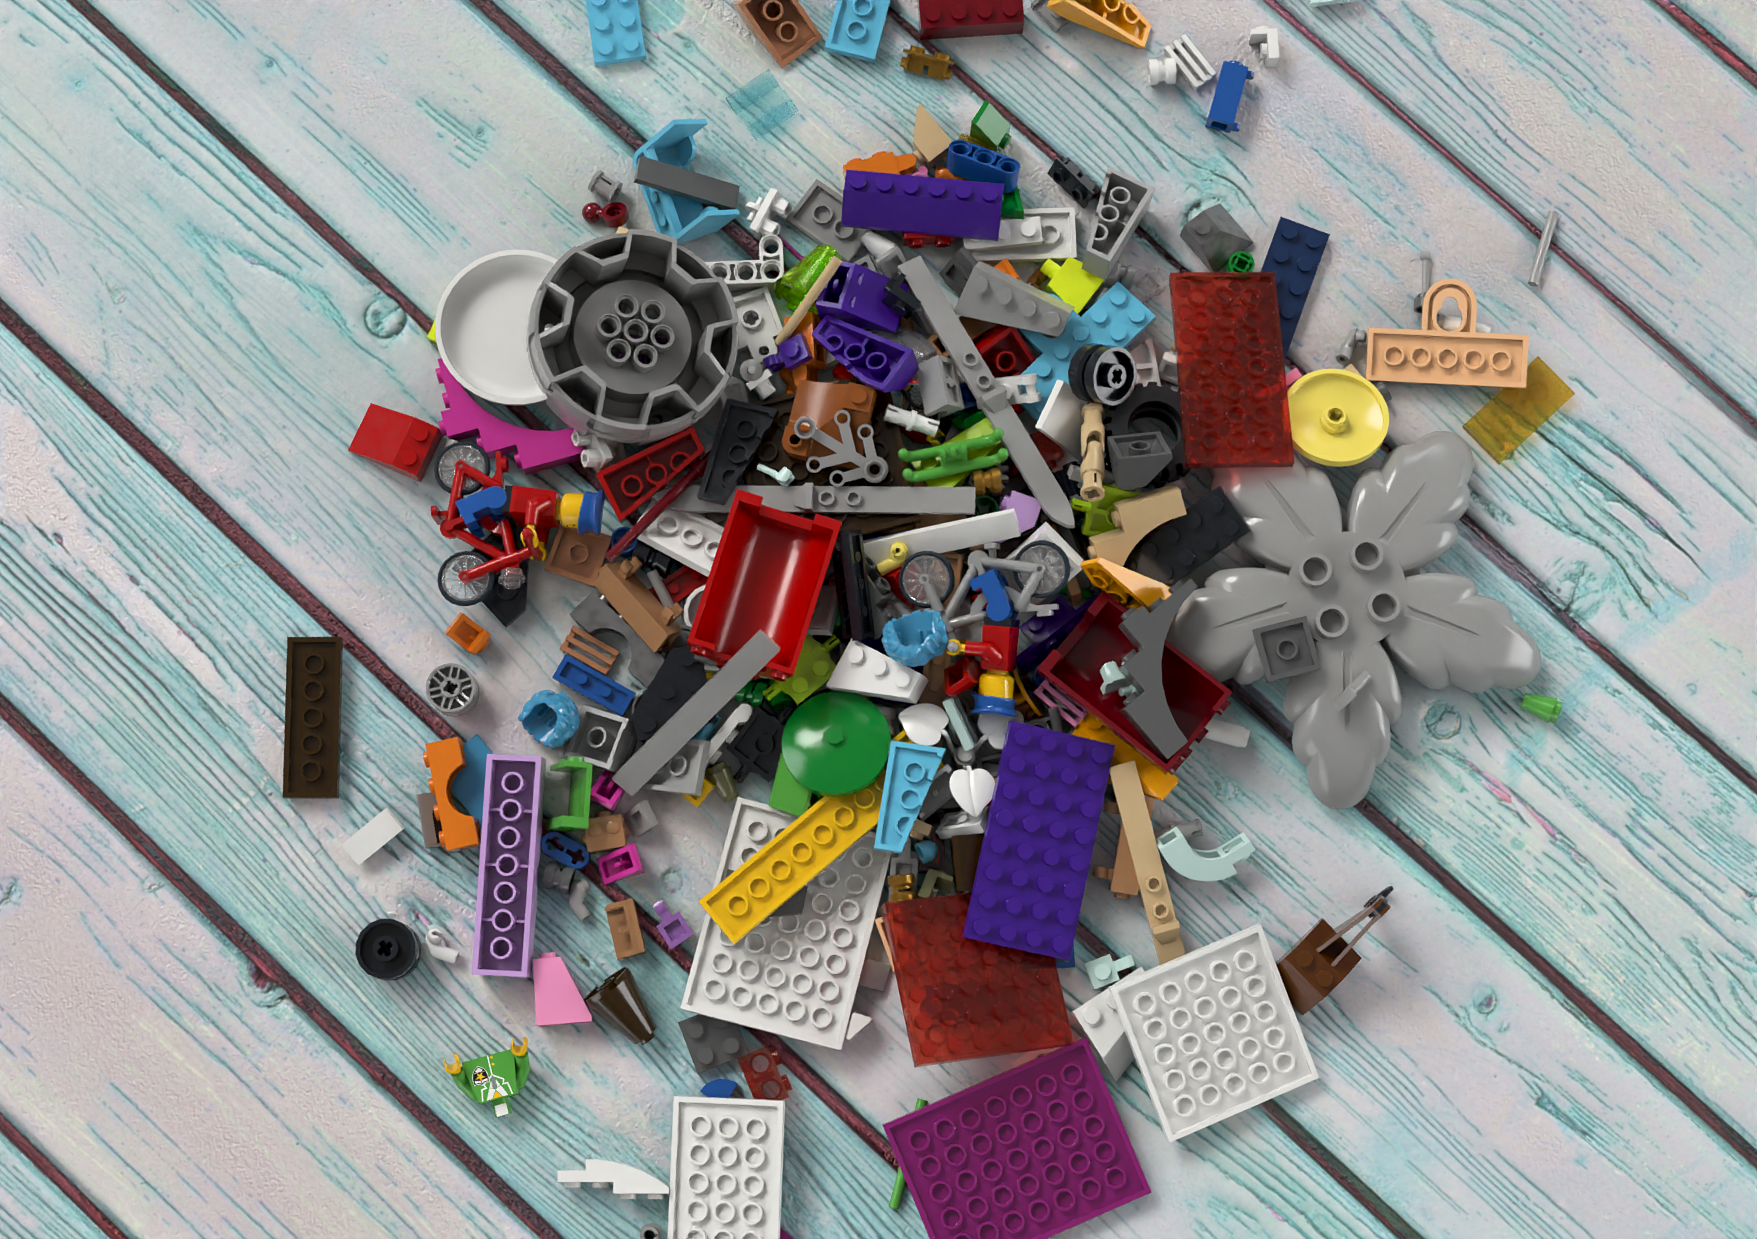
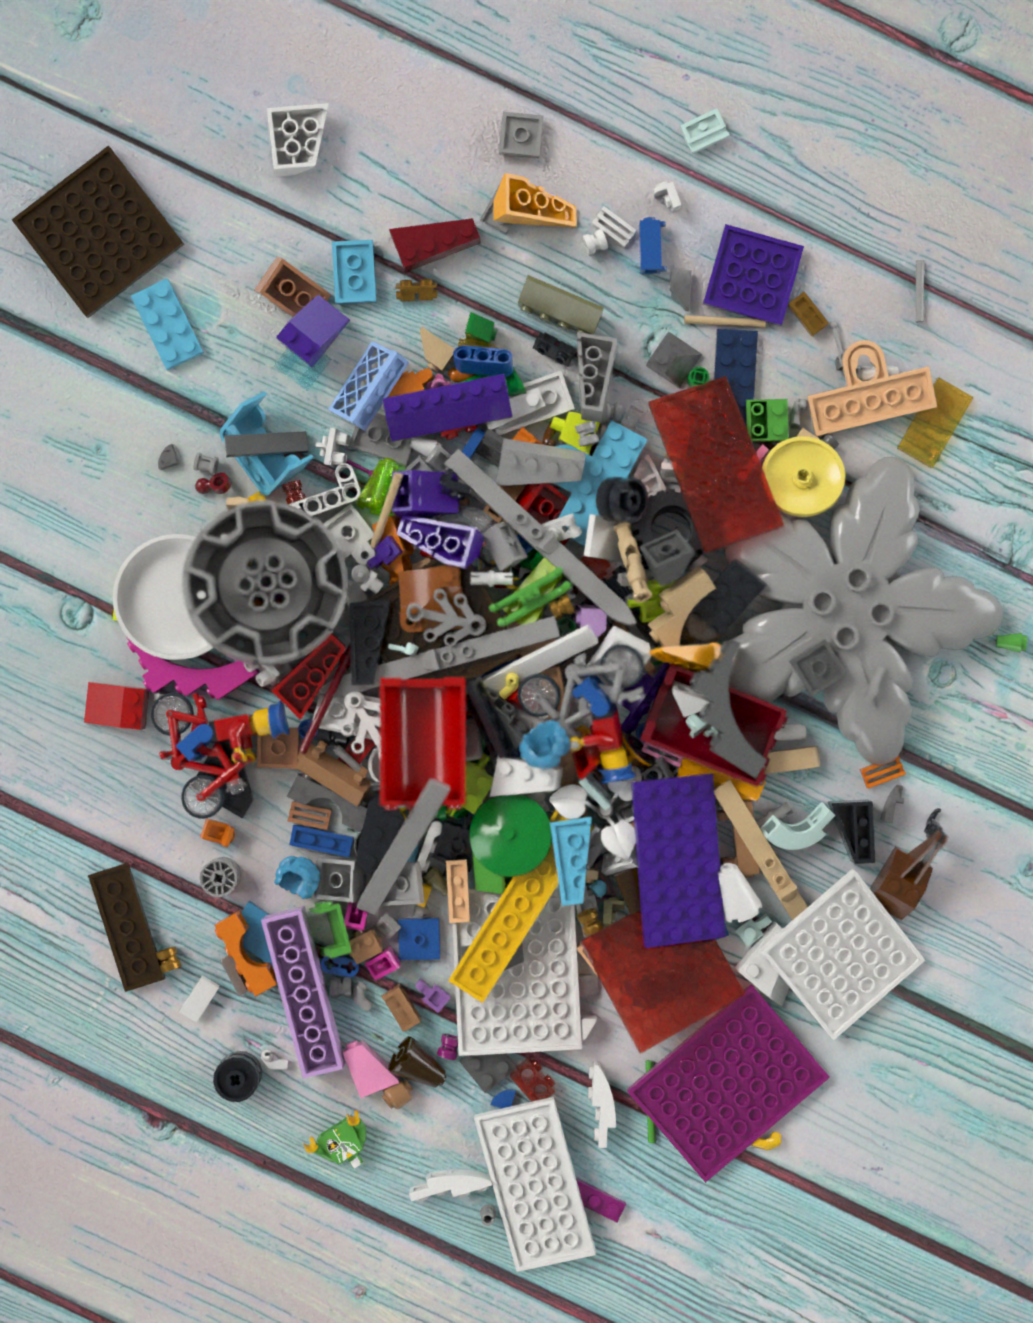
camera: 15 degrees left, 10 degrees up
(351, 774) = (168, 959): none -> pearl gold wheel
(561, 167) = (168, 458): none -> flat silver tile
(584, 1038) = (398, 1094): none -> medium nougat head
(673, 991) = (449, 1047): none -> magenta wheel
(677, 848) = (419, 939): none -> blue plate
(690, 813) = (420, 912): none -> light grey hinge
(700, 550) = (367, 722): none -> white plant
(702, 247) = (293, 491): none -> clear red wheel
(746, 798) = (457, 891): none -> light nougat plate
(786, 69) = (312, 330): none -> dark purple slope
(847, 154) = (370, 403): none -> light blue fence
(848, 1122) = (601, 1096): none -> white slope
(940, 259) = (473, 443): none -> blue beam
(1083, 287) = (585, 429): none -> light grey wheel
(1095, 130) = (559, 306): none -> olive slope
(1100, 910) = (737, 895): none -> white cone
(1111, 642) = (687, 699): none -> white slope
(1220, 767) = (793, 759): none -> tan beam
(1250, 155) = (681, 286): none -> flat silver slope
(1277, 877) = (856, 828): none -> black wedge
(1292, 212) = (724, 321): none -> tan bar
(1310, 341) = (767, 420): none -> bright green slope
(1335, 830) = (899, 766): none -> orange tile
(1338, 857) = (889, 806): none -> flat silver slope
(1343, 167) = (753, 275): none -> dark purple plate
(1397, 233) = (808, 314): none -> pearl gold plate

